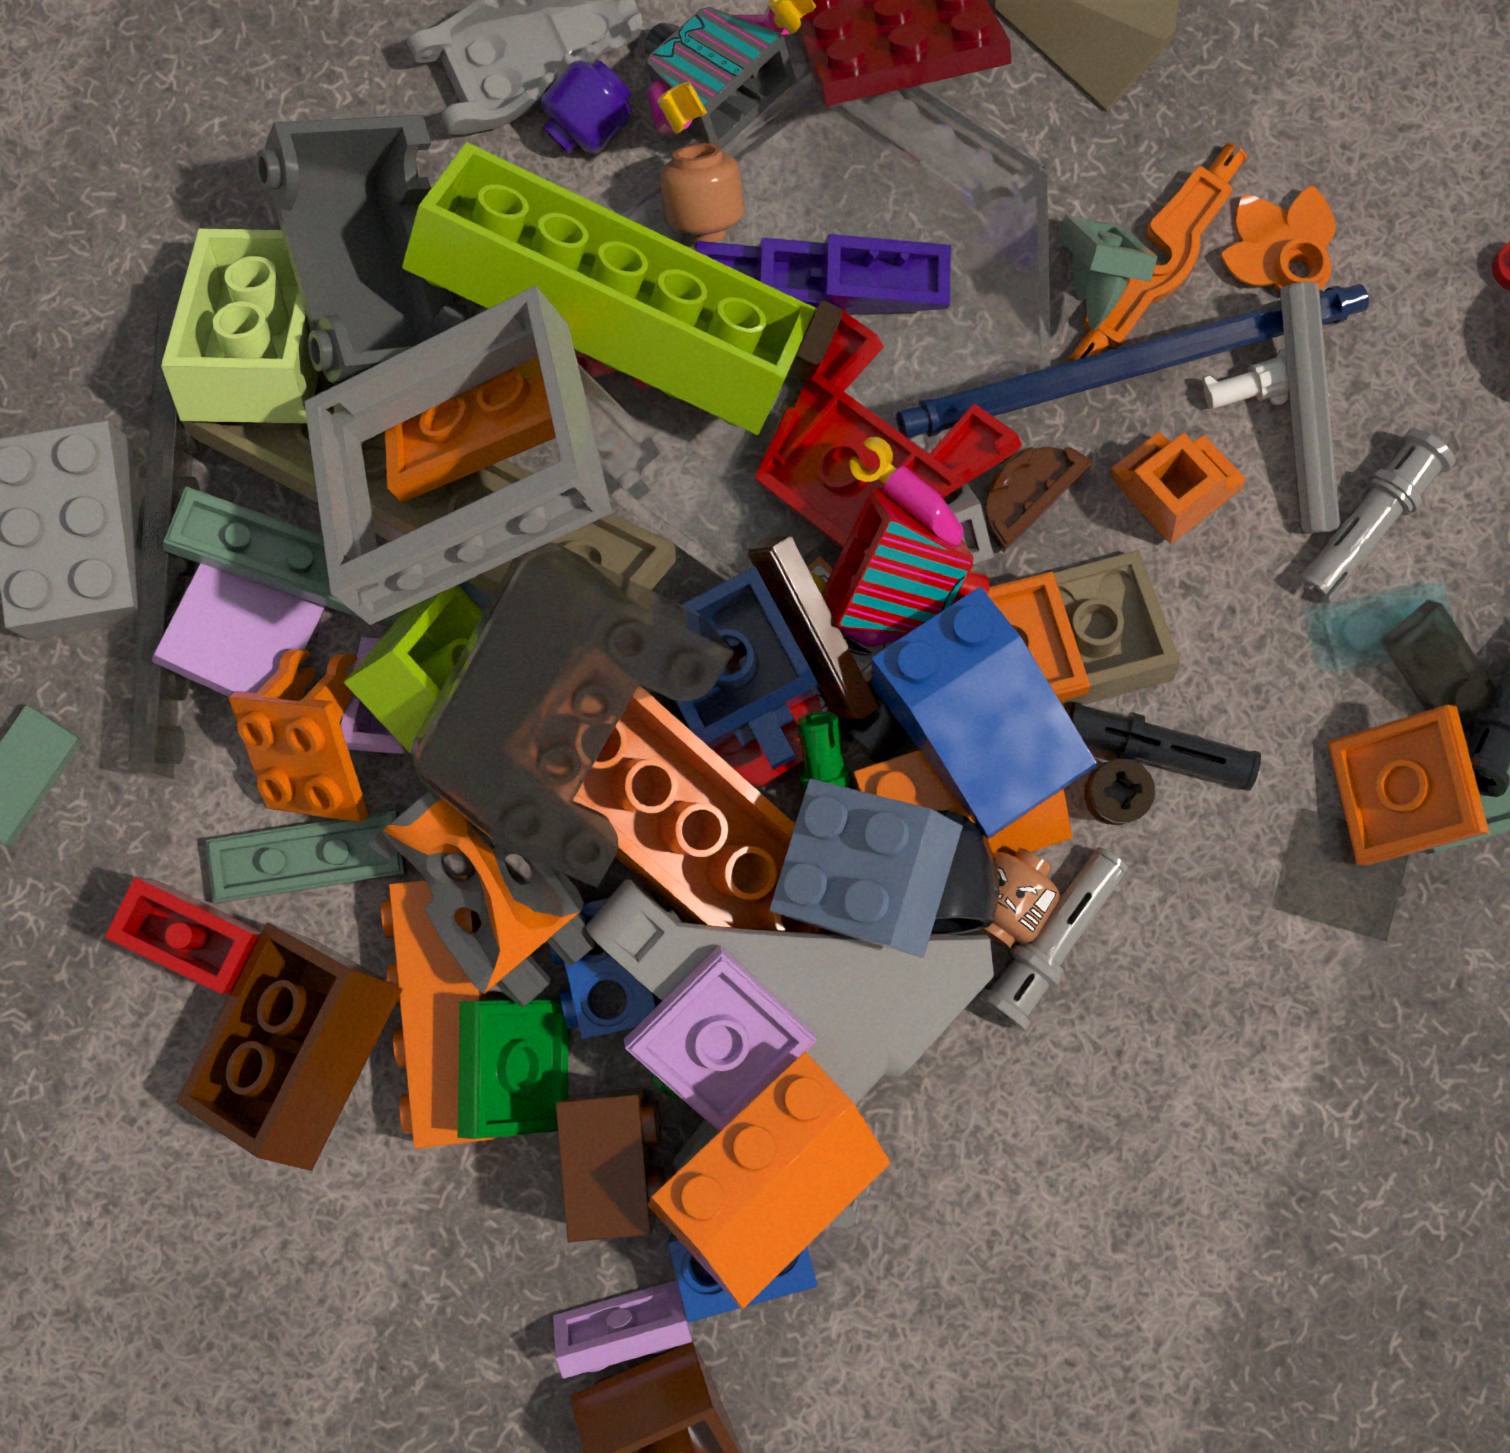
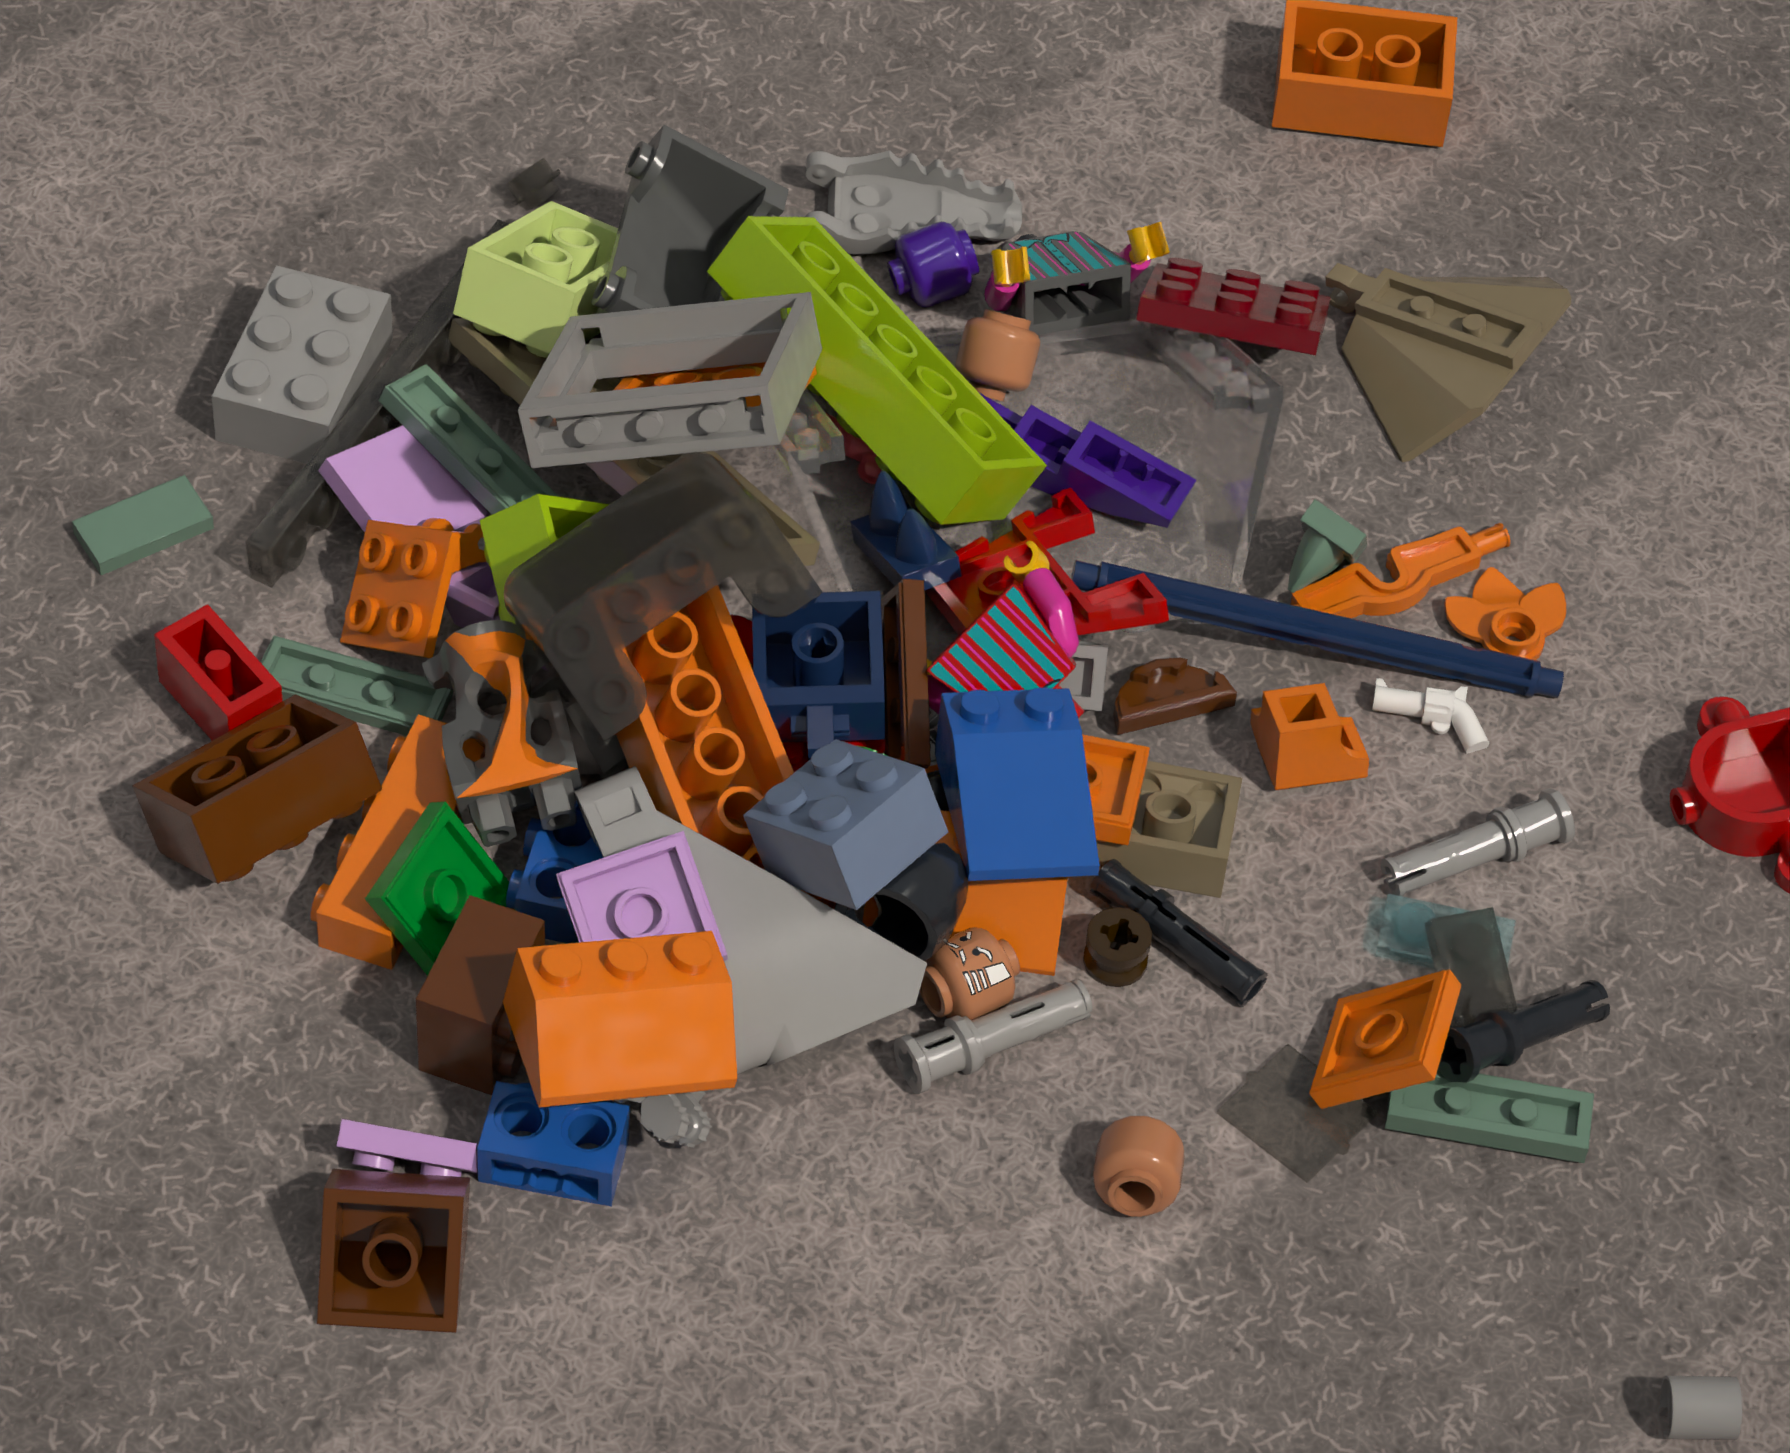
camera: 20 degrees right, 30 degrees down
(166, 198) = (534, 184): none -> clear smoke plate
(727, 460) = (901, 539): none -> dark blue tile
(815, 342) = (1030, 487): dark brown tile -> none
(1249, 1016) = (1138, 1166): none -> nougat head
(1310, 407) = (1459, 733): light grey axle -> none

